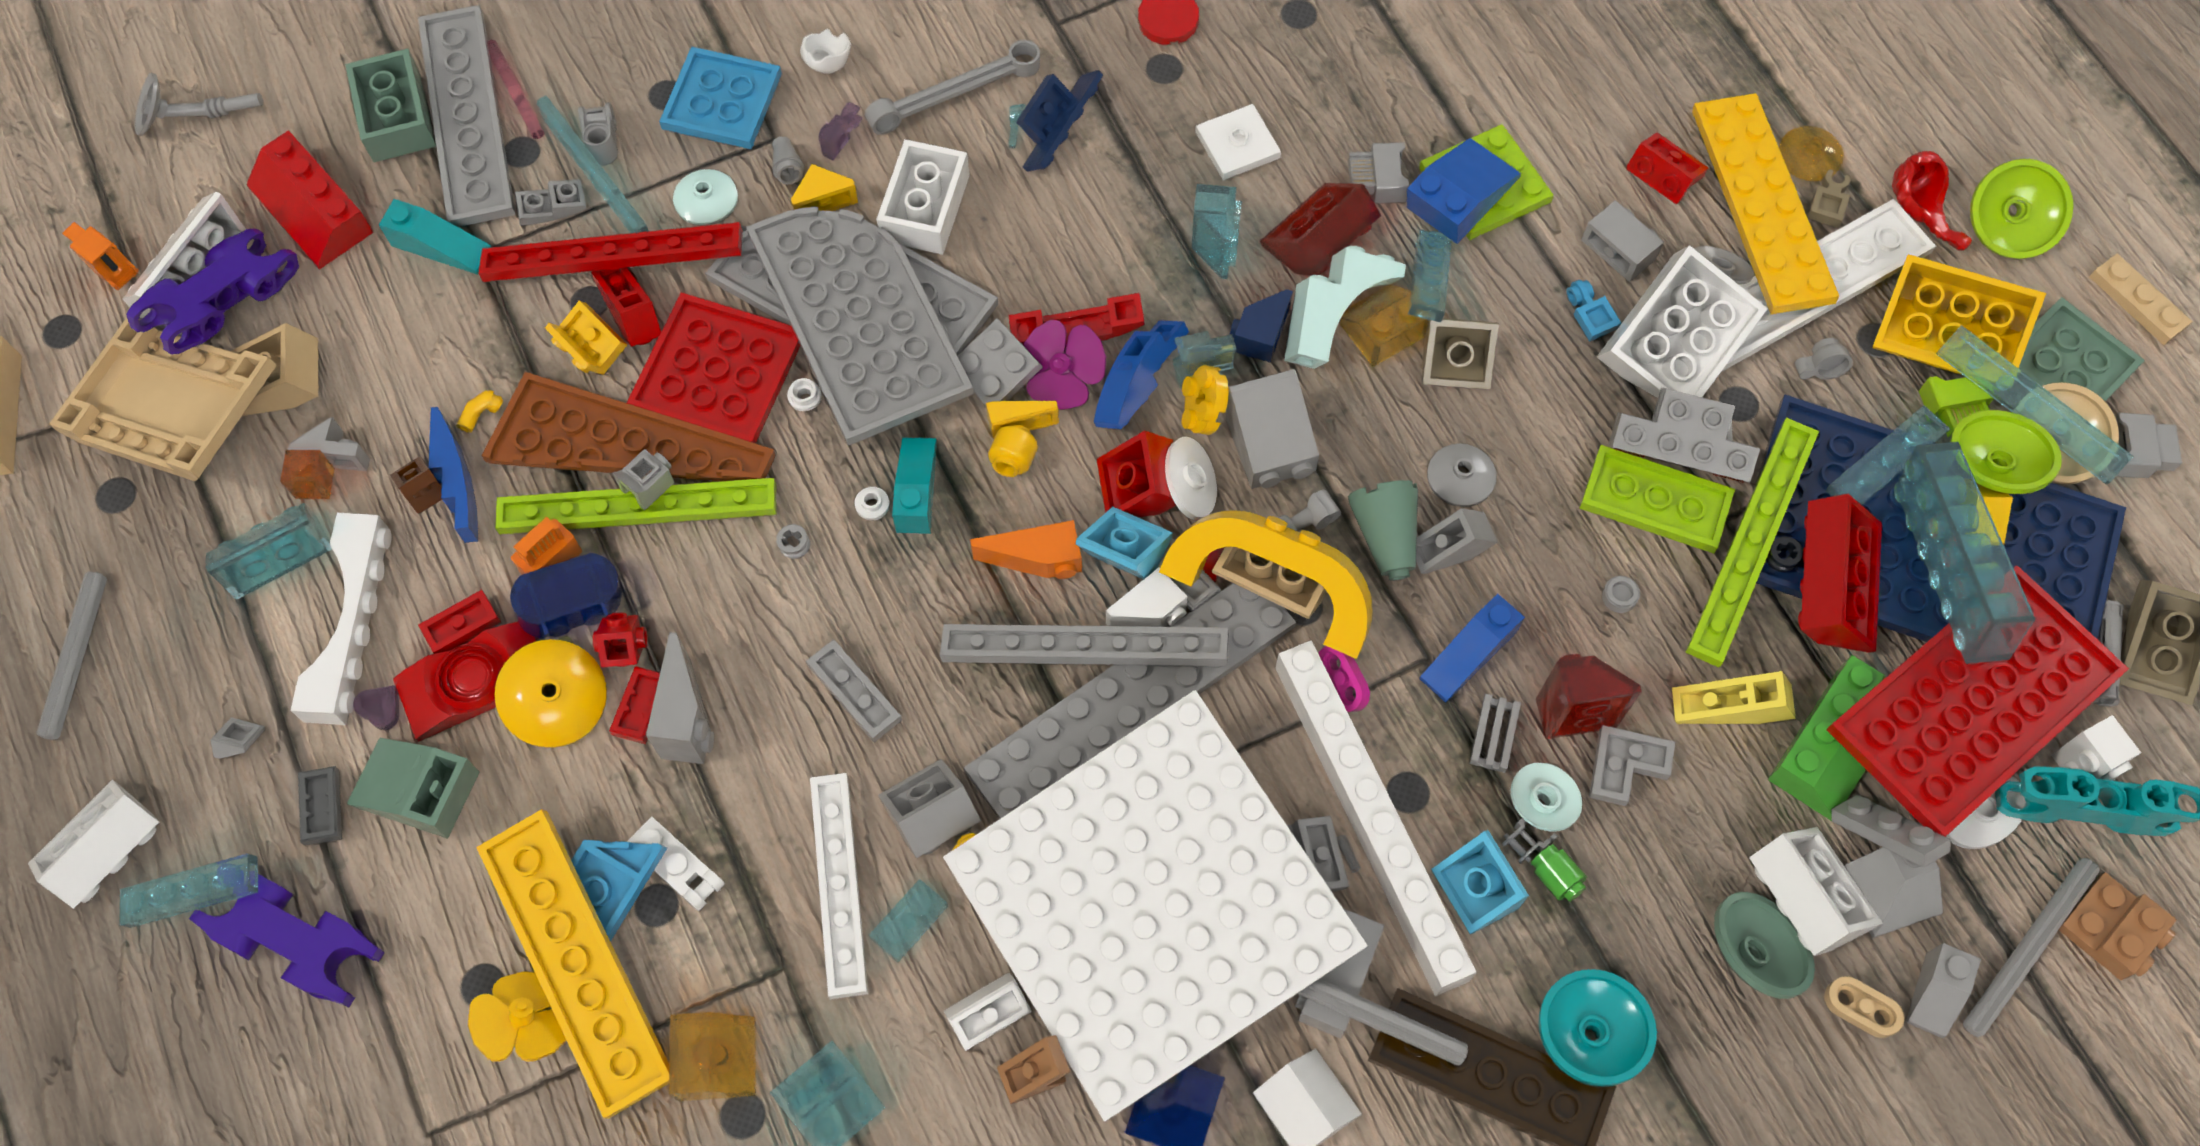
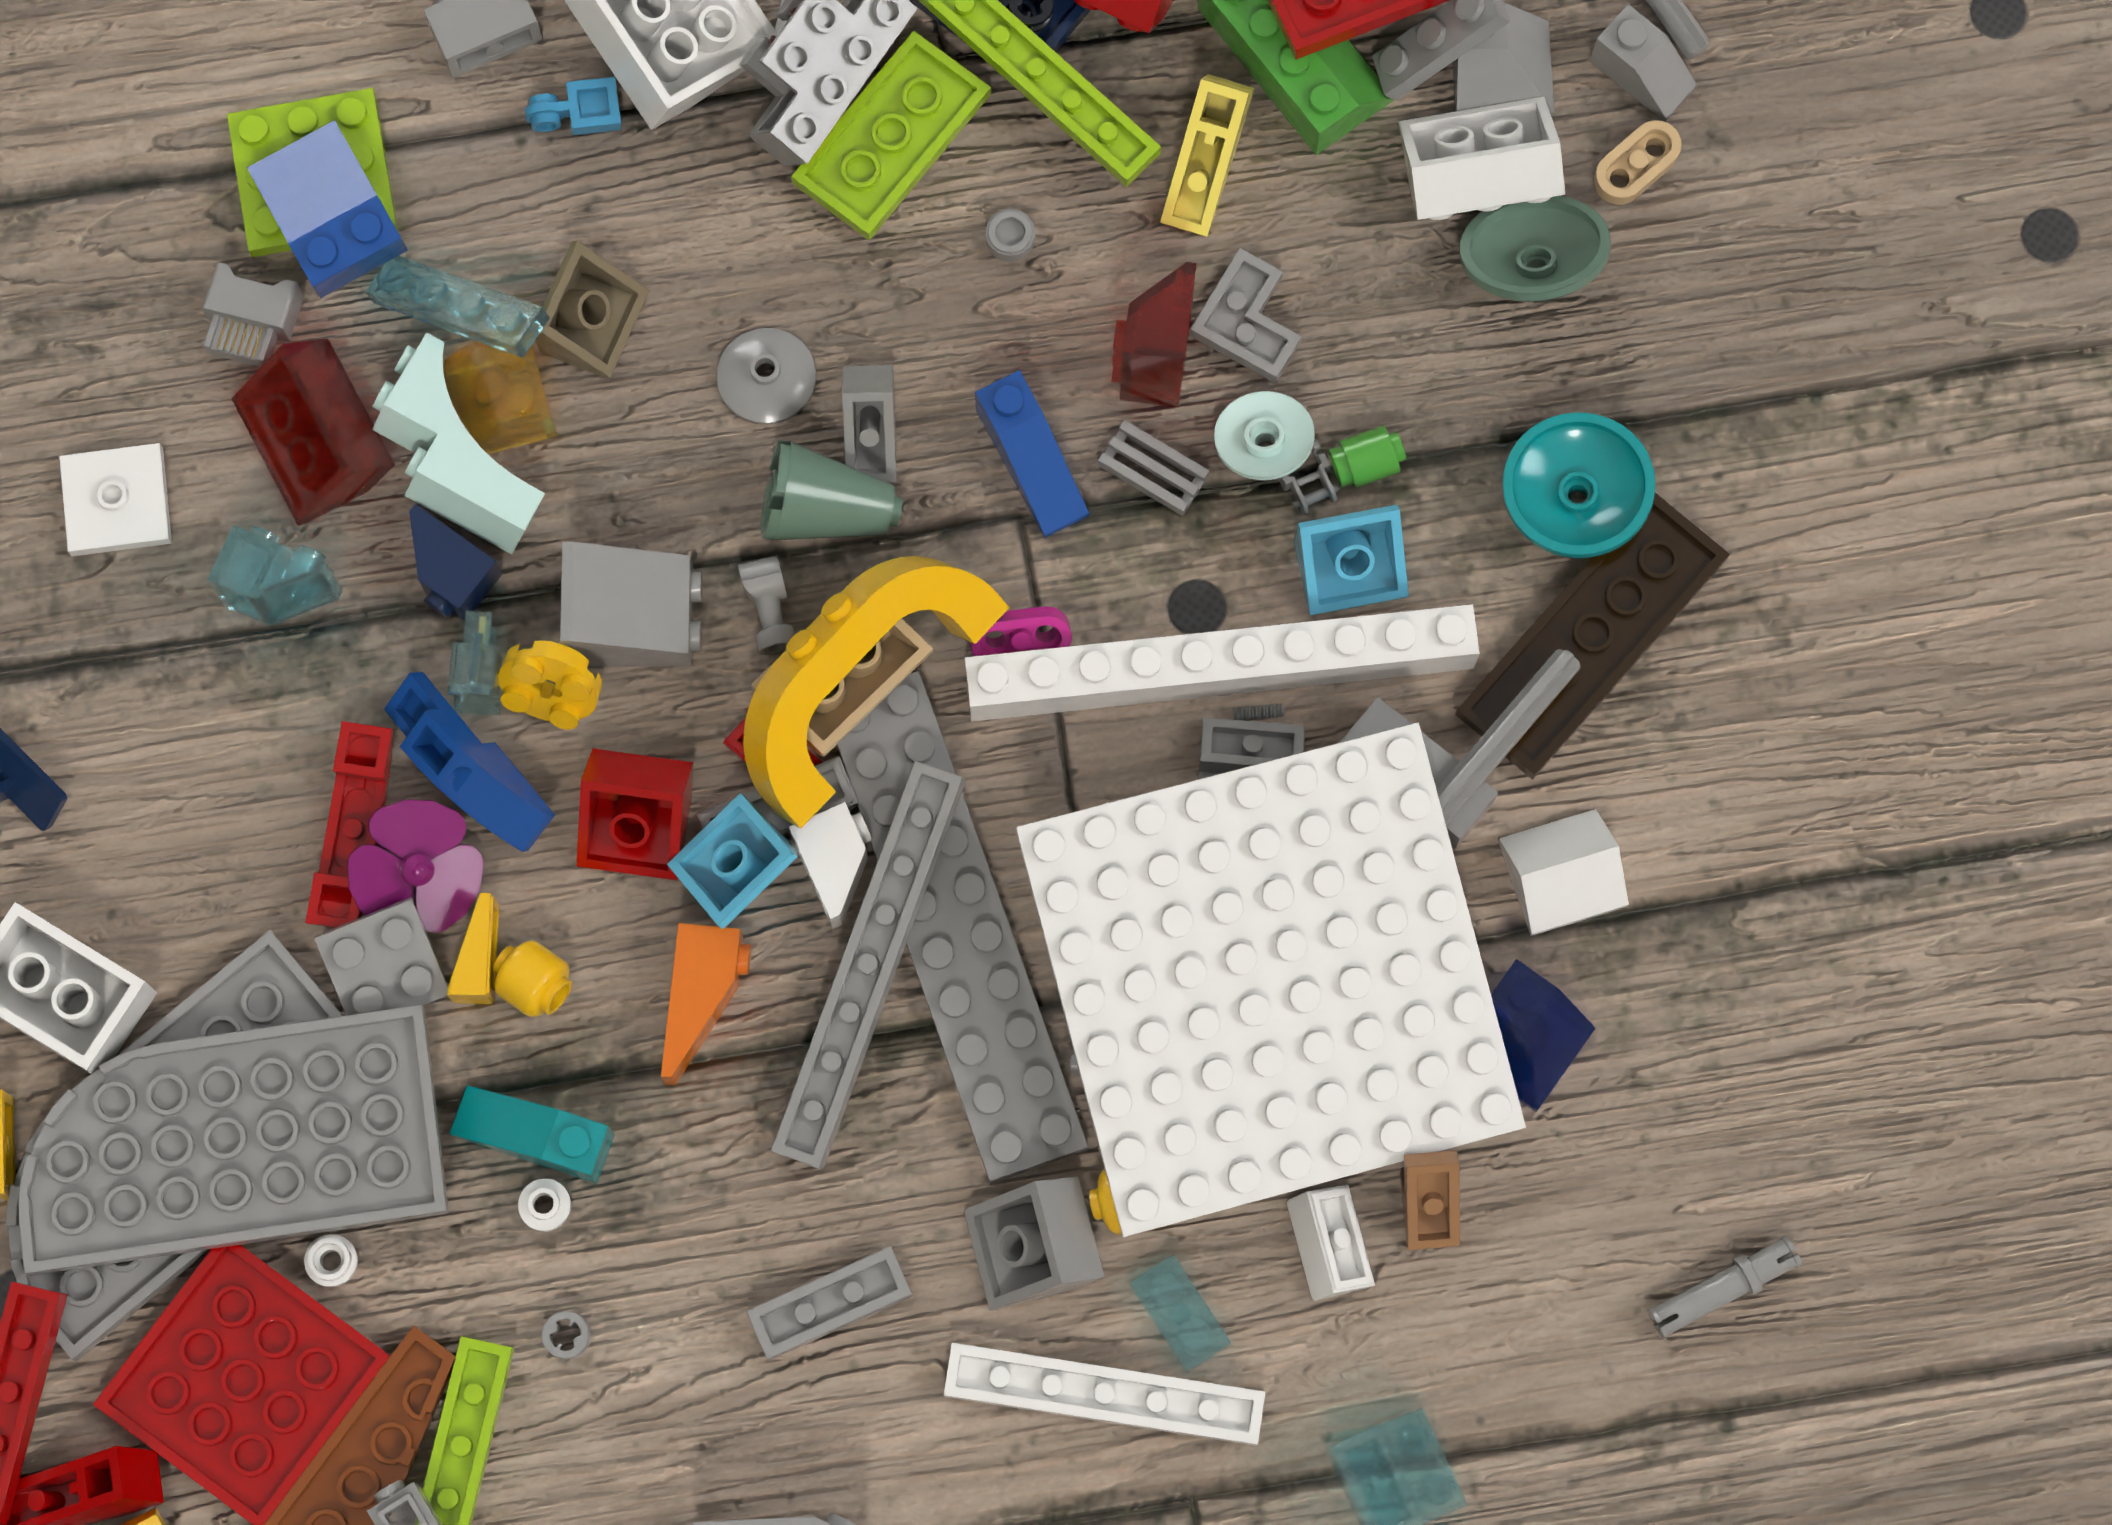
camera: 75 degrees left, 10 degrees up
(1190, 478) = (660, 742): white piece -> none

